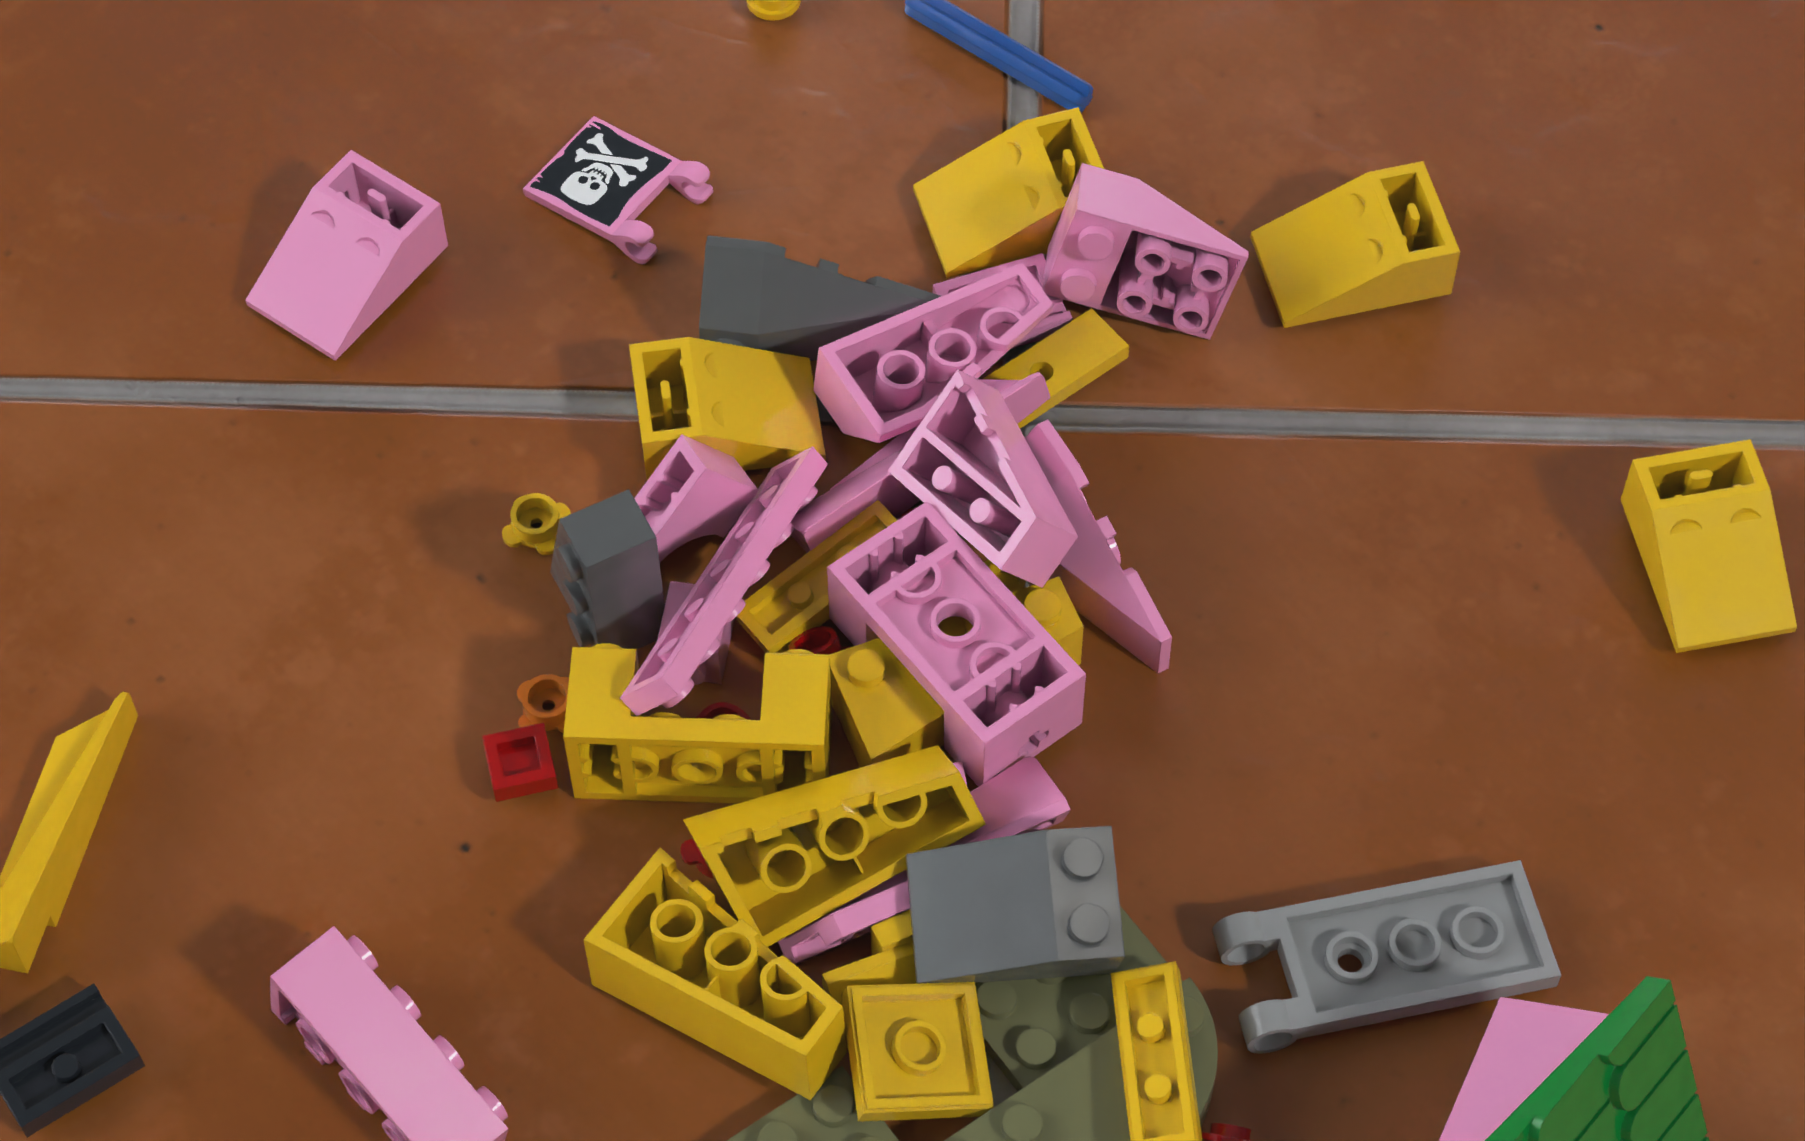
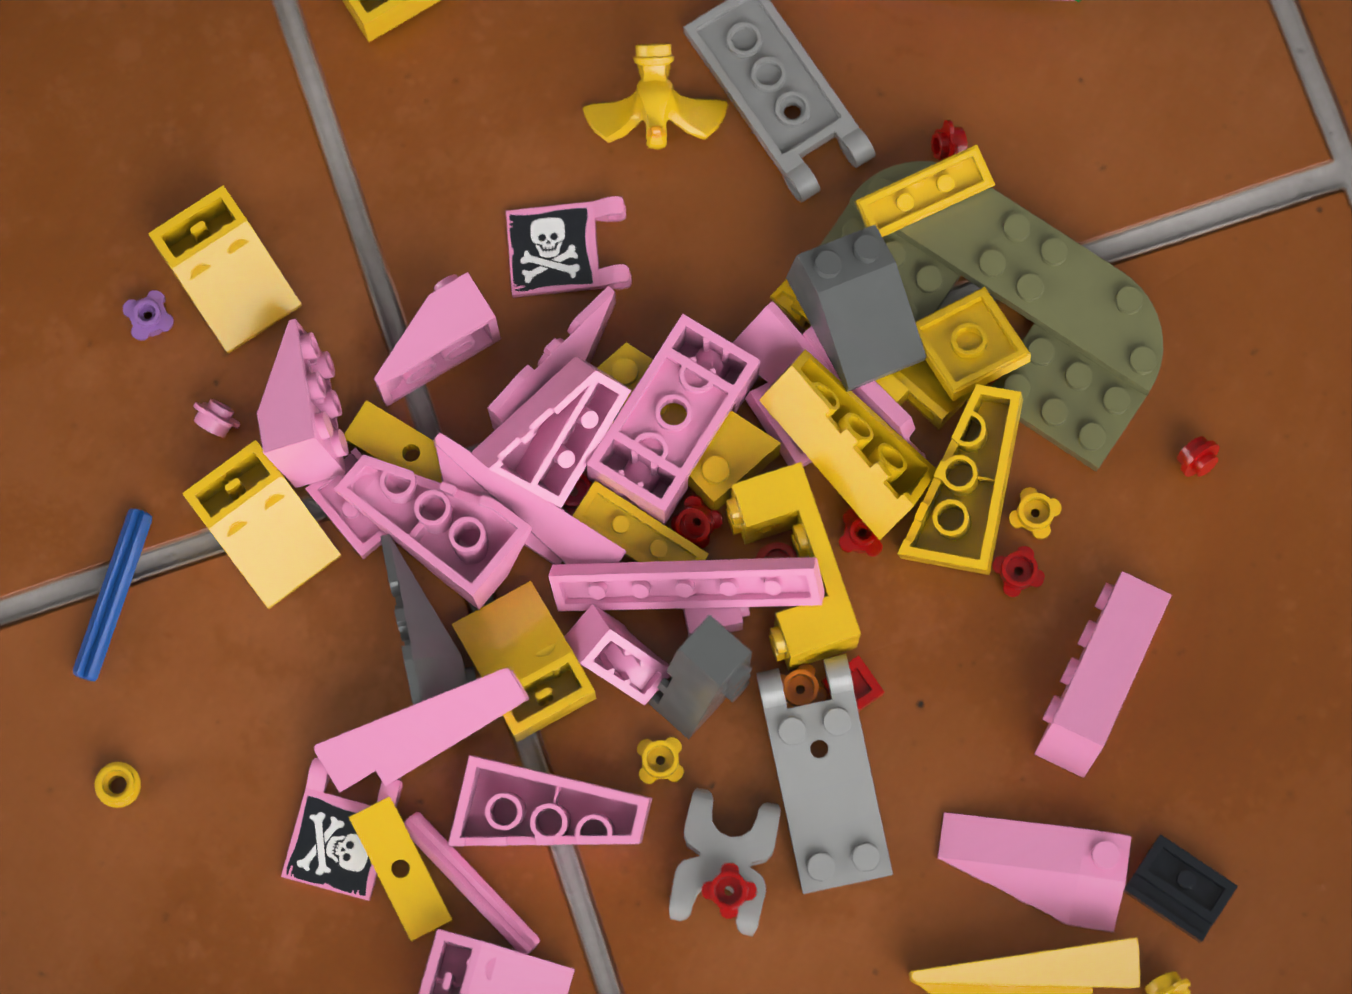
camera: 110 degrees left, 20 degrees up
(174, 921) = (1055, 868): none -> bright pink wedge
(327, 499) = (715, 890): none -> red plate
(375, 546) = (717, 849): none -> light grey piece
(393, 680) = (828, 798): none -> light grey hinge
(488, 288) = (471, 884): none -> bright pink axle
(532, 371) = (531, 807): none -> bright pink wedge
(538, 214) = (413, 894): none -> yellow tile
(577, 1003) = (1023, 559): none -> red plate
(646, 1054) = (1047, 509): none -> yellow plate
(674, 245) = (418, 732): none -> bright pink wedge
(1176, 185) = (215, 417): none -> bright pink plate
(1178, 431) = (444, 333): none -> bright pink slope
(1255, 624) = (558, 250): none -> flag
(1322, 180) = (160, 319): none -> medium lavender plate
(1414, 783) = (655, 104): none -> yellow animal

